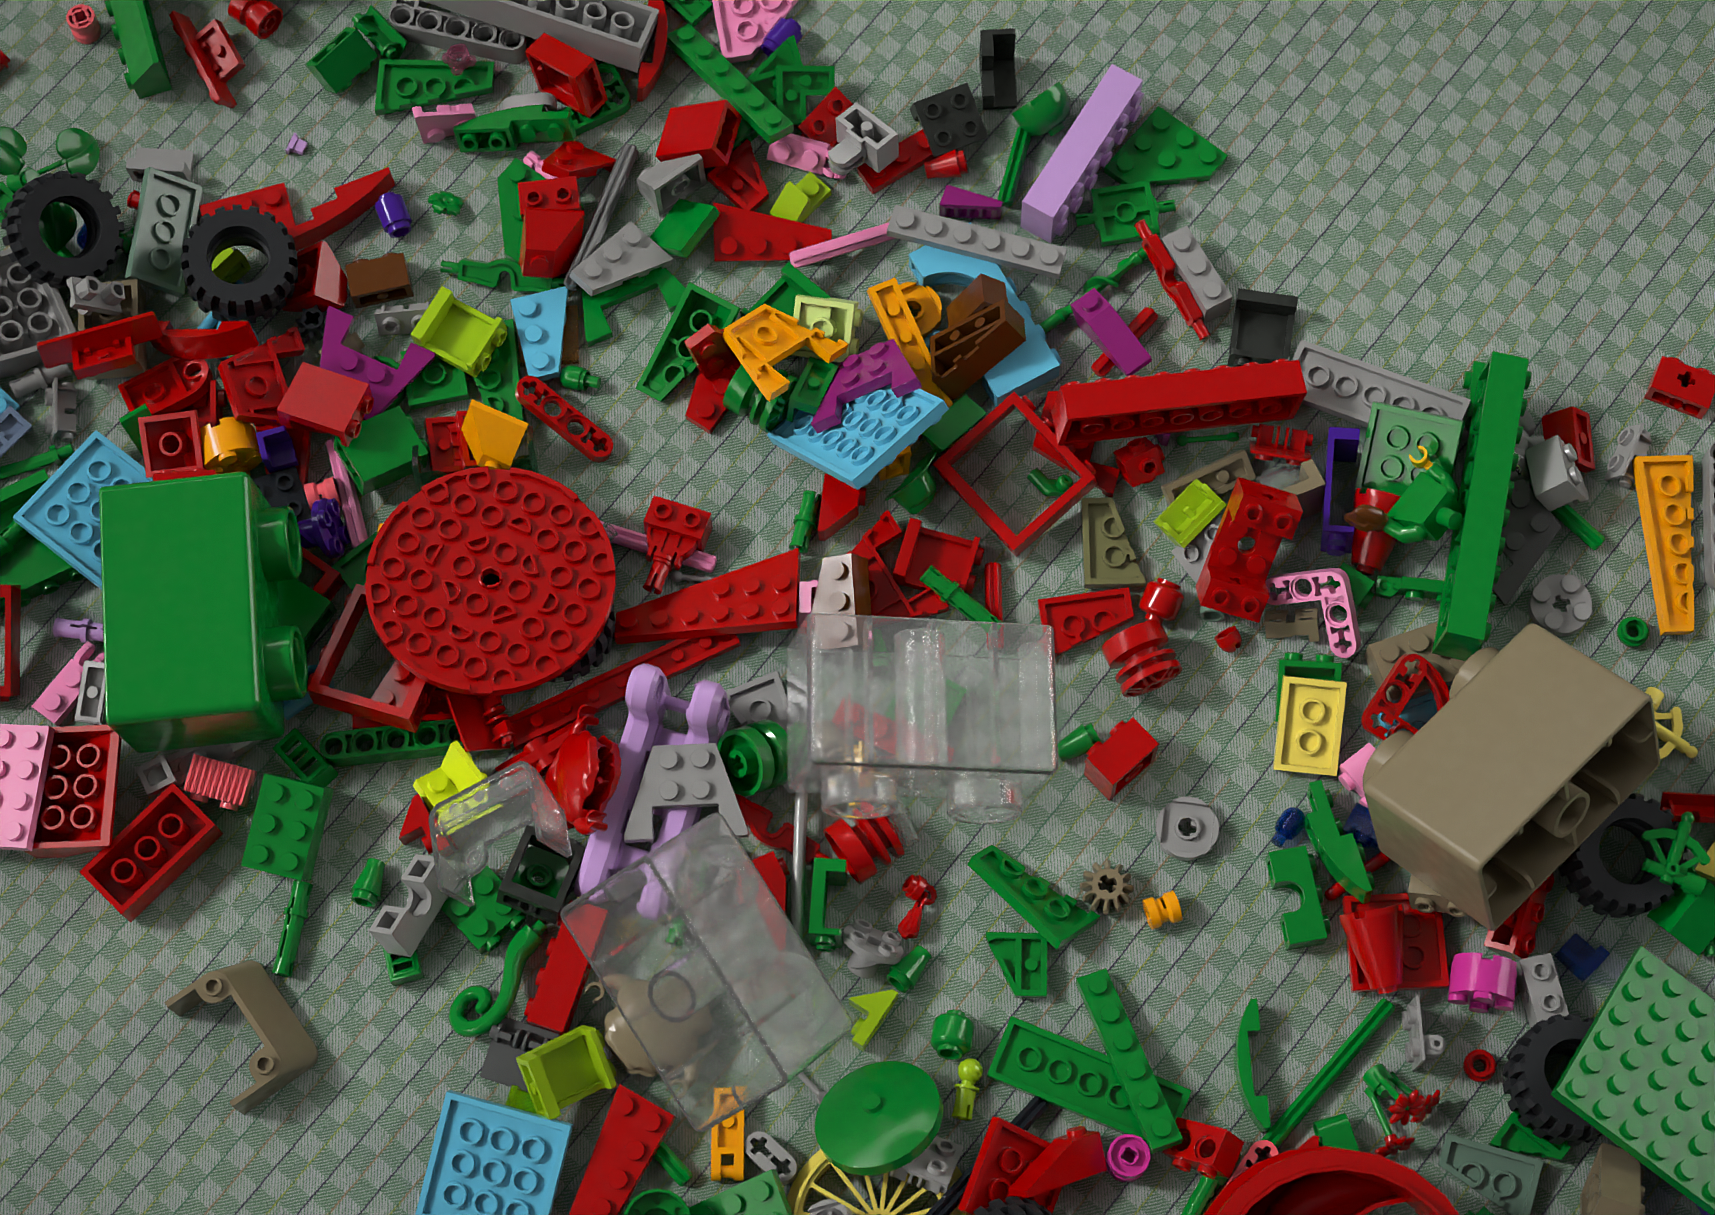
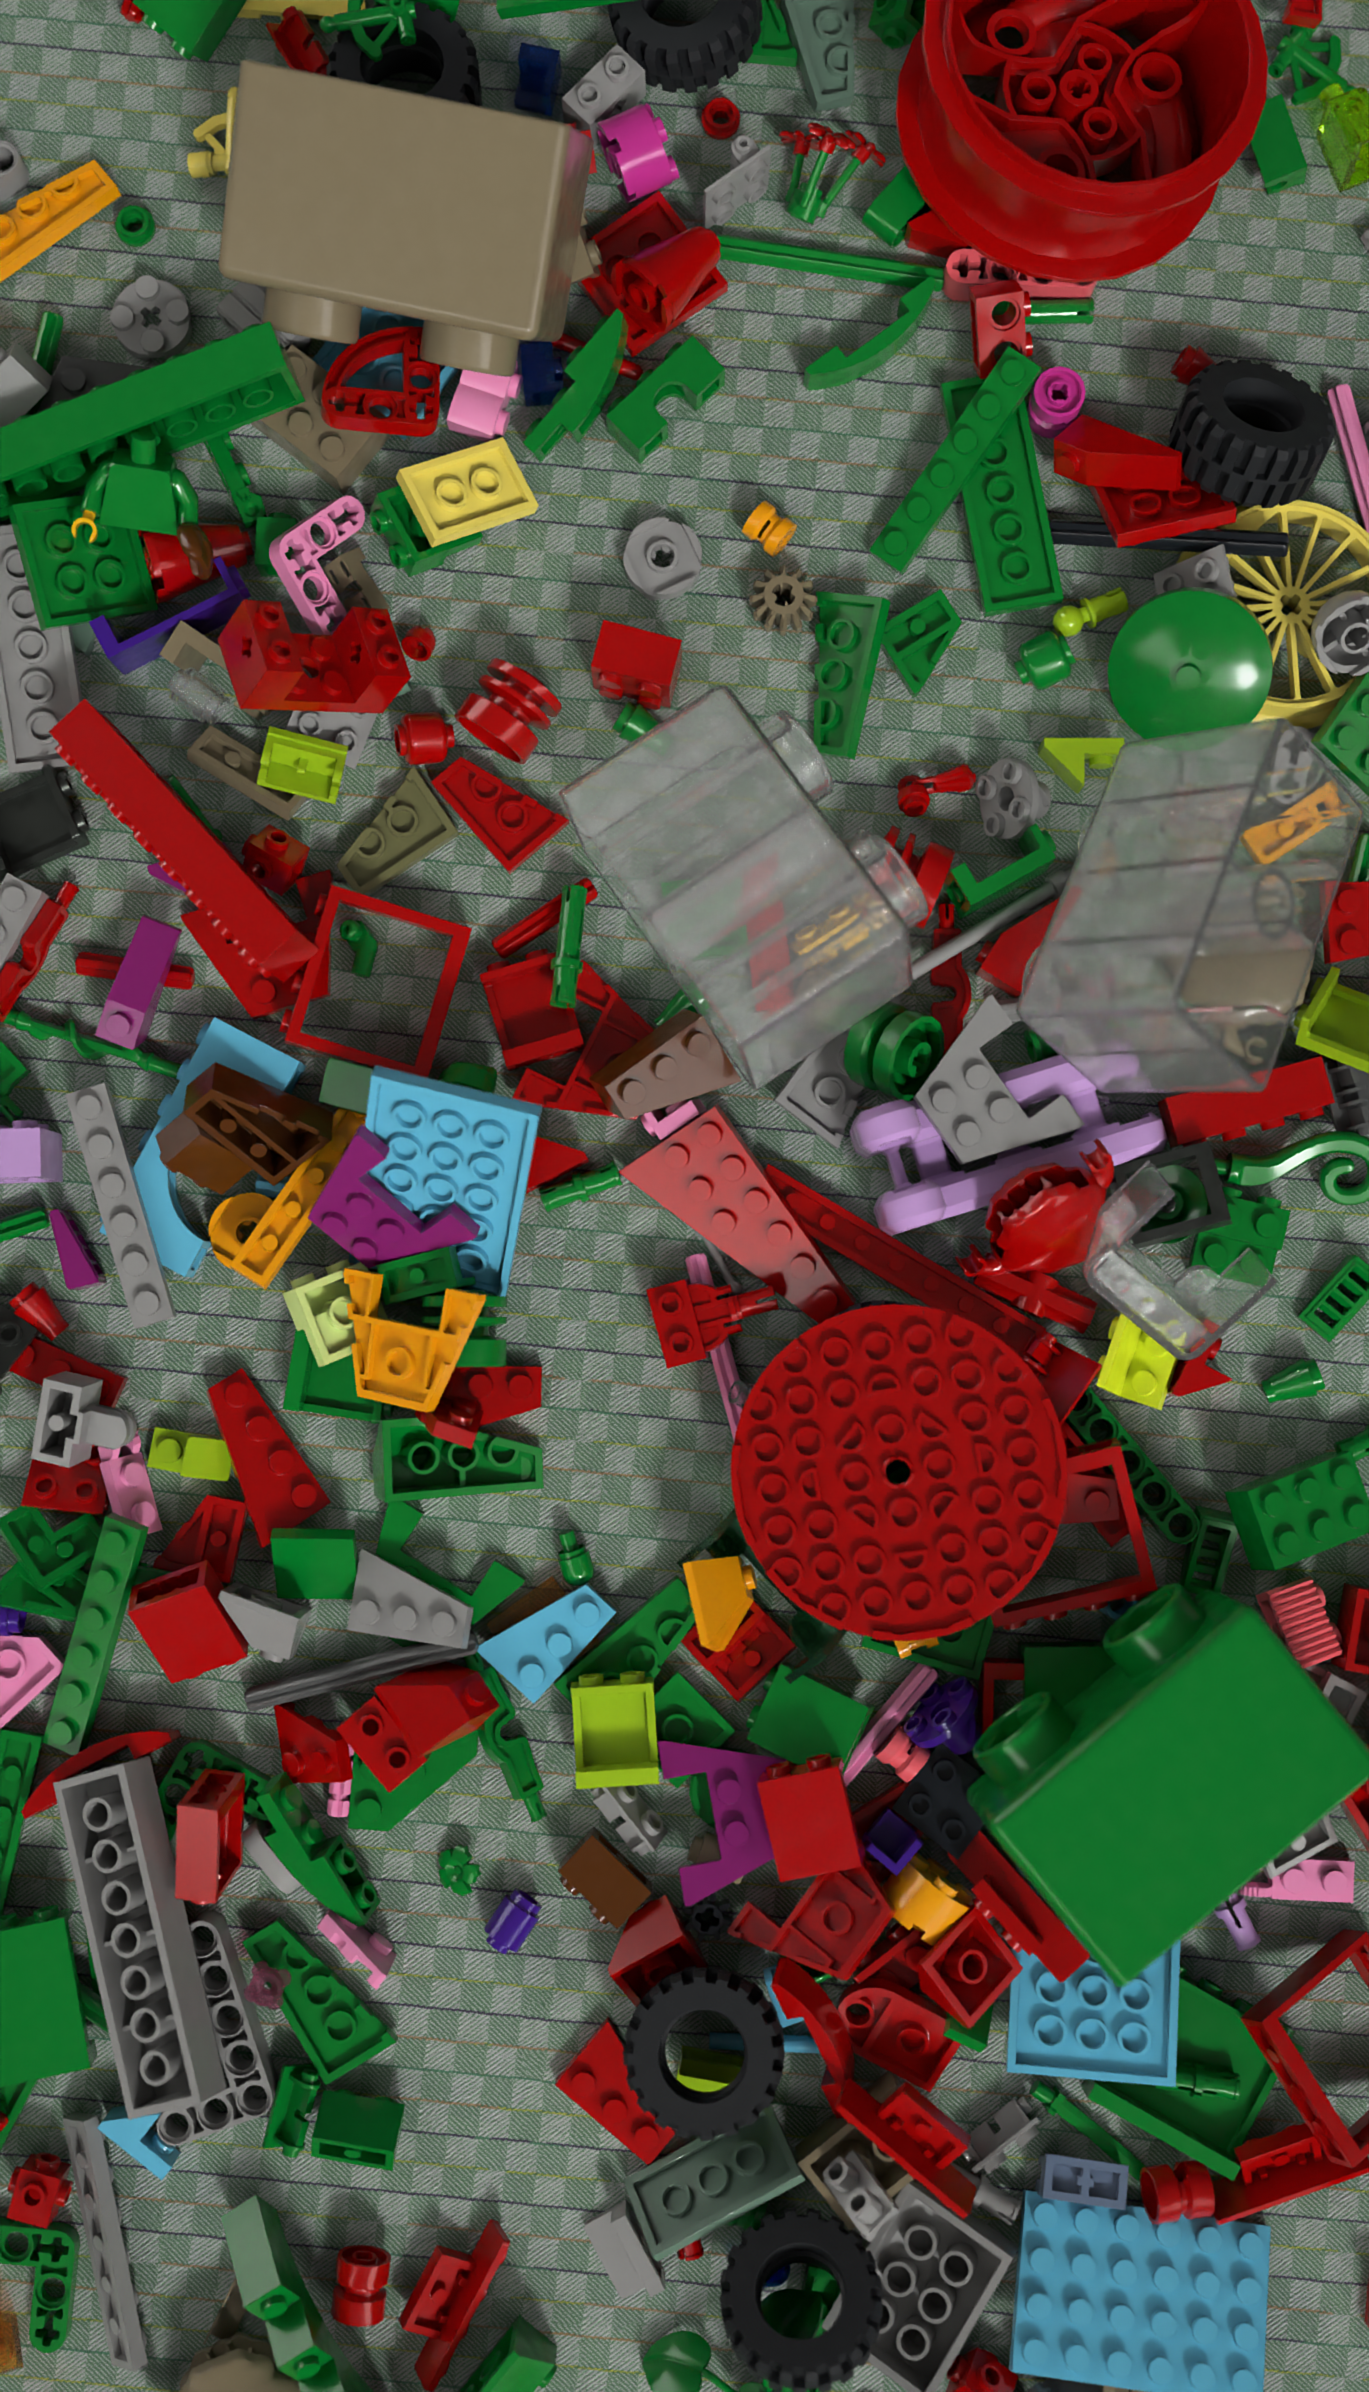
camera: 130 degrees left, 15 degrees up
(296, 145) = (496, 2106): lavender piece -> none
(352, 201) = (529, 1983): red slope -> none
(403, 928) = (1324, 1301): light grey arch -> none
(561, 422) = (630, 1539): red beam -> none
(840, 246) = (221, 1363): bright pink axle -> none
(909, 969) = (997, 747): green cone -> none
(1266, 450) = (160, 713): red hinge -> none
(1288, 826) = (589, 456): clear blue cylinder -> none

